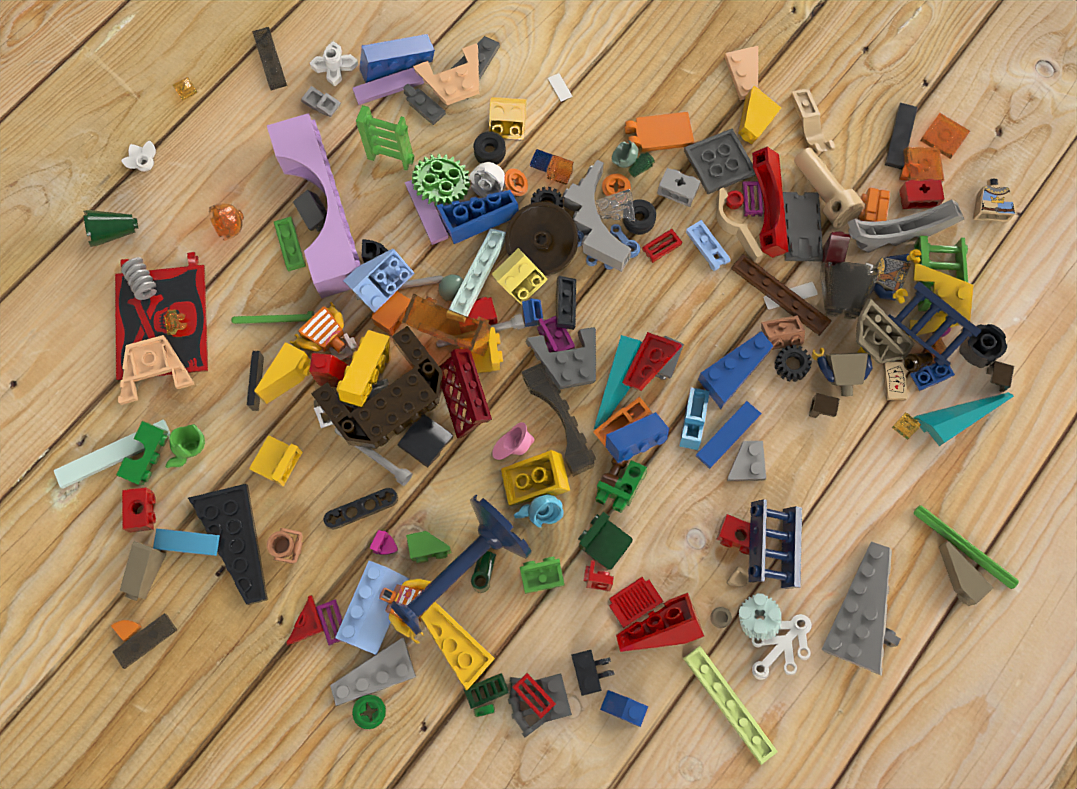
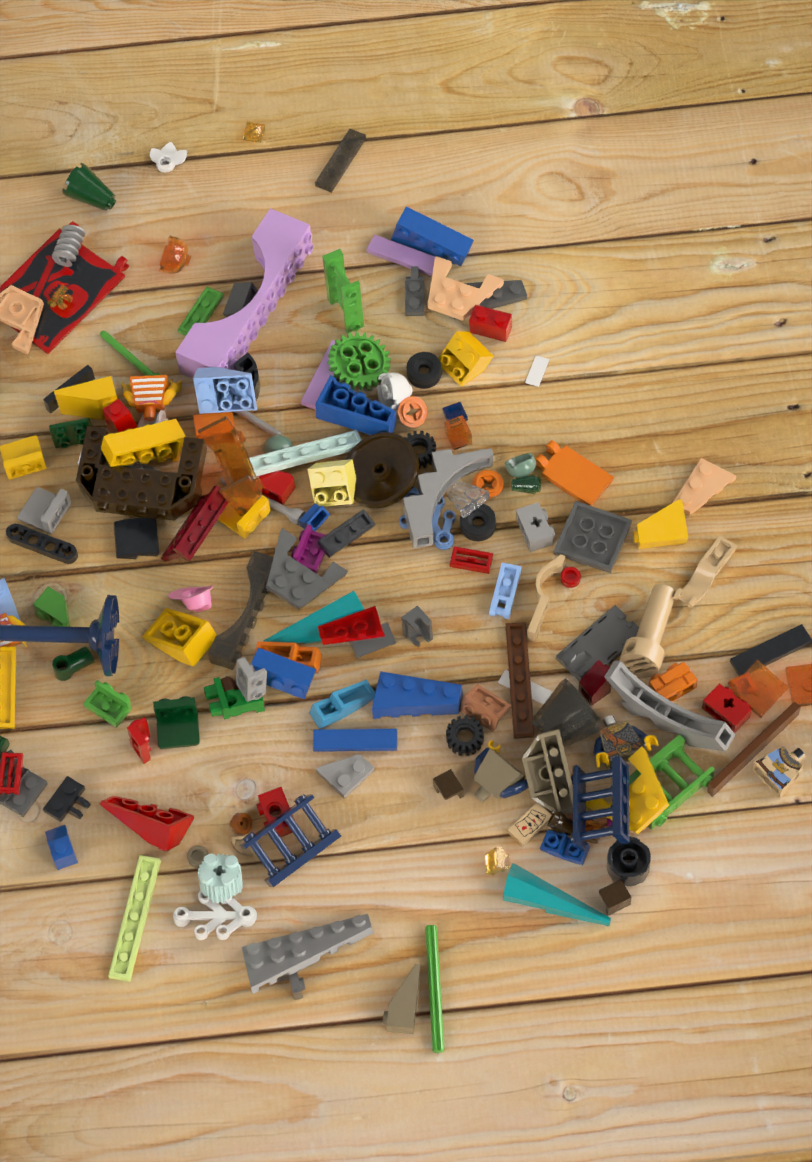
camera: 50 degrees right, 10 degrees down
(293, 409) = (69, 433): none -> dark green bracket
(322, 103) = (340, 225): light grey slope -> none
(333, 63) = (381, 202): white plant -> none
(335, 482) = (45, 509): none -> light grey bracket
(383, 544) = (28, 579): dark pink tile -> none
(402, 475) = (93, 547): light grey piece -> none
(499, 80) = (490, 323): none -> red brick
(543, 509) = (158, 660): medium azure hair -> none
(631, 464) = (250, 683): none -> light grey bracket
(634, 601) = (152, 787): red window -> none
(687, 316) = (416, 624): none -> dark grey hinge
(724, 566) = (241, 823): none -> dark orange tile
(752, 212) = (574, 600): magenta tile -> none
(768, 172) = (619, 575): red arch -> none
(965, 203) = (753, 749): none -> reddish brown tile

